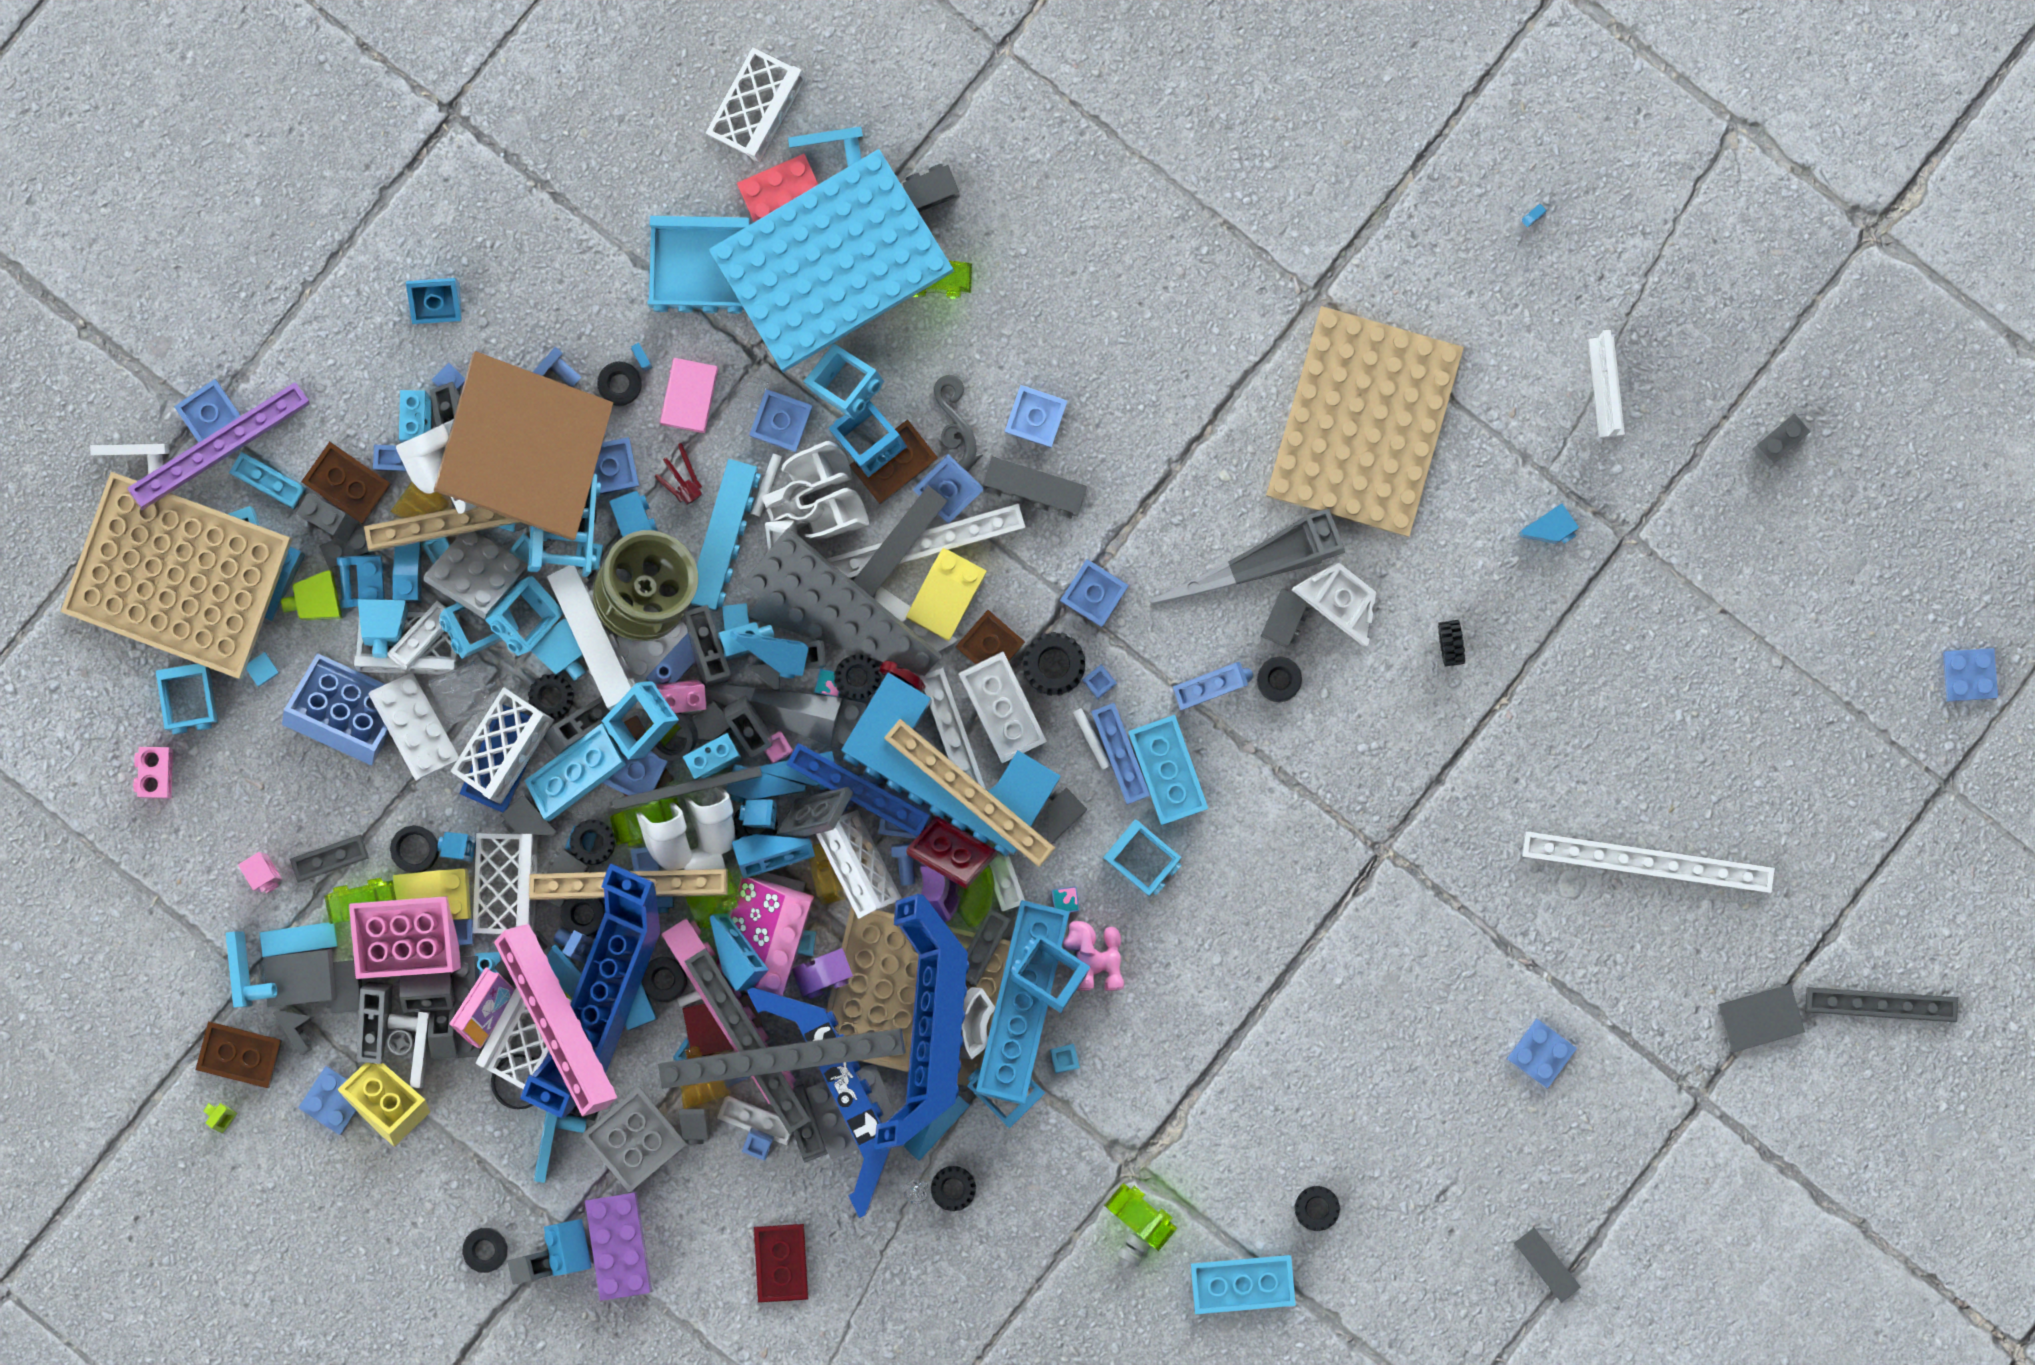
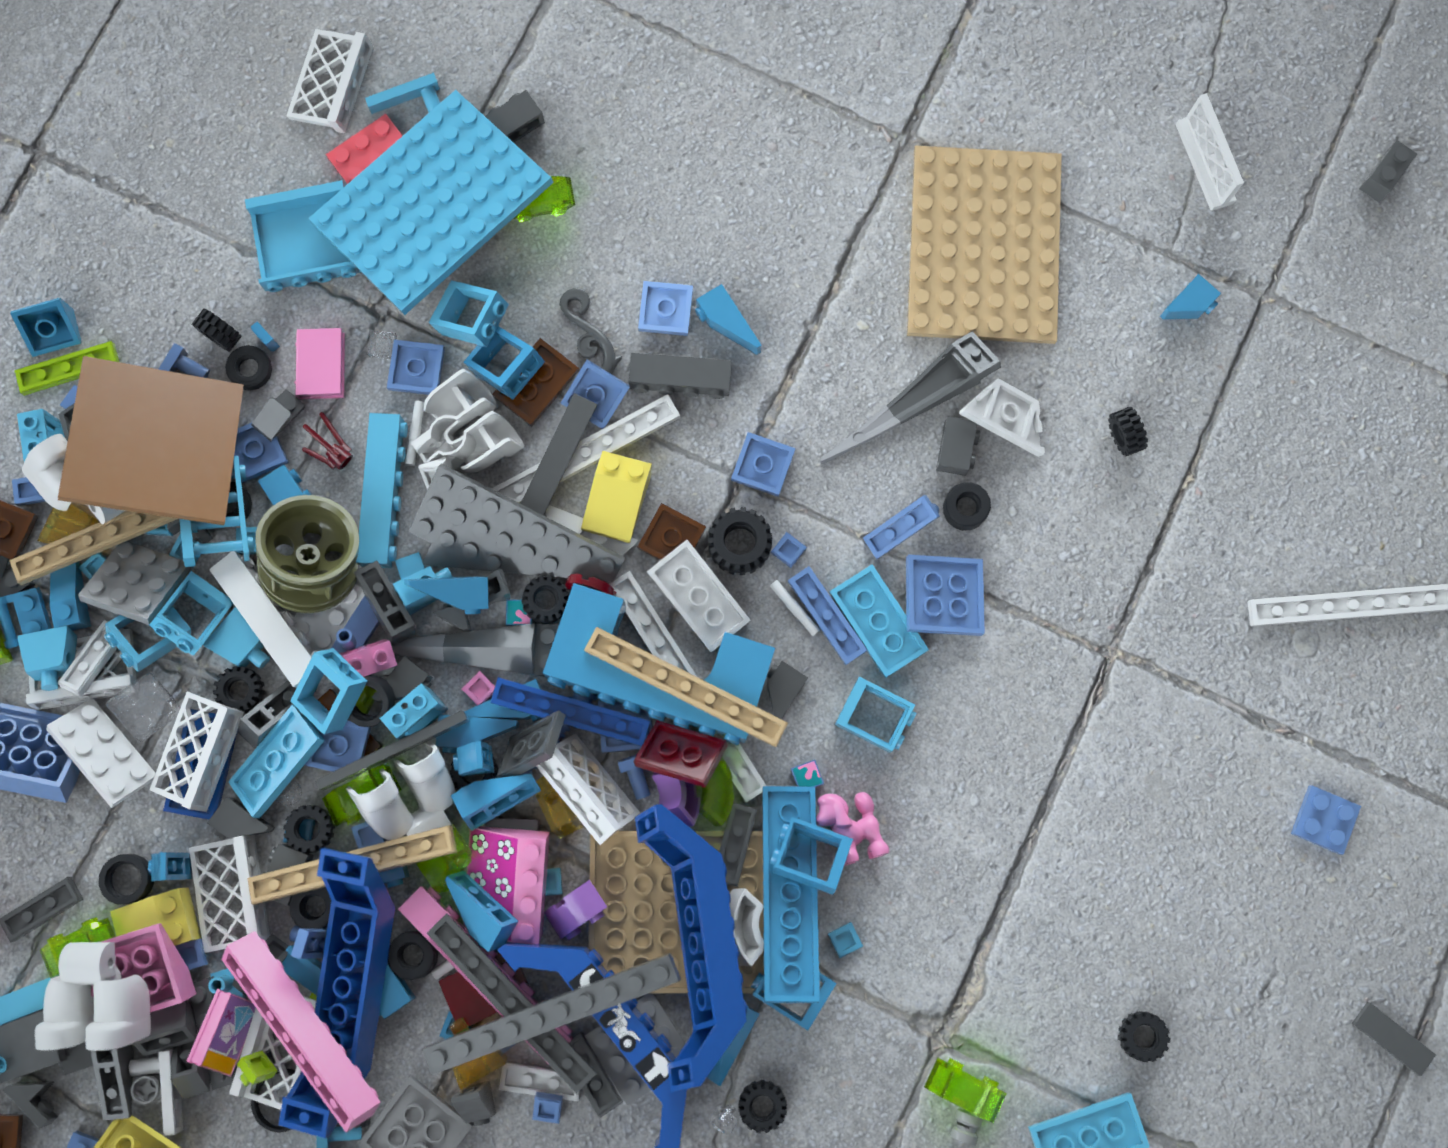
camera: 20 degrees left, 5 degrees down
(352, 953) = (105, 1022): none -> white piece
(444, 343) = (60, 369): none -> lime tile
(505, 1046) = (256, 1068): none -> lime tile
(597, 342) = (216, 330): none -> black tyre
(640, 439) = (277, 414): none -> slope
(748, 726) = (444, 673): dark grey brick -> none
(1090, 438) = (725, 318): none -> dark azure slope
(1236, 760) = (944, 595): none -> medium blue plate
(1534, 215) = (1095, 19): dark azure tile -> none

